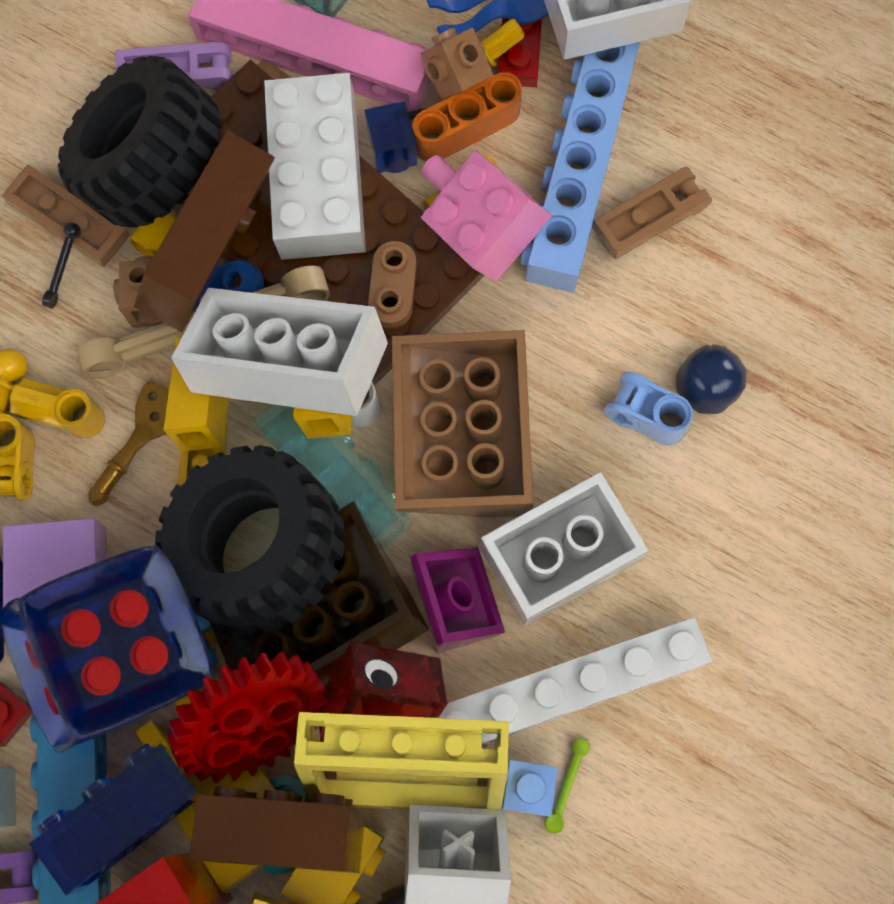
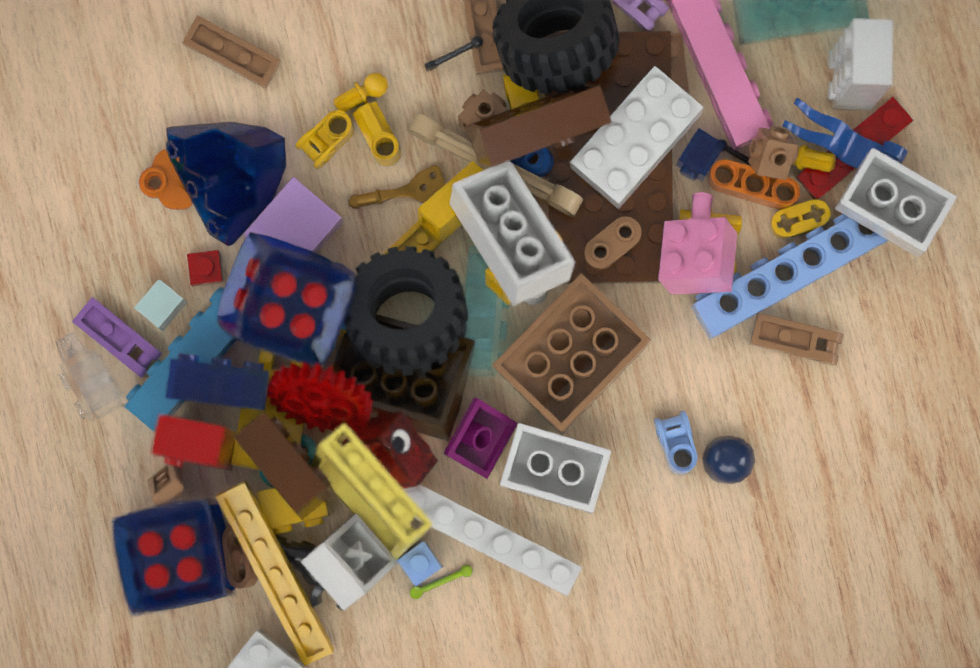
camera: 45 degrees right, 10 degrees up
(532, 107) = (802, 226): none -> yellow beam

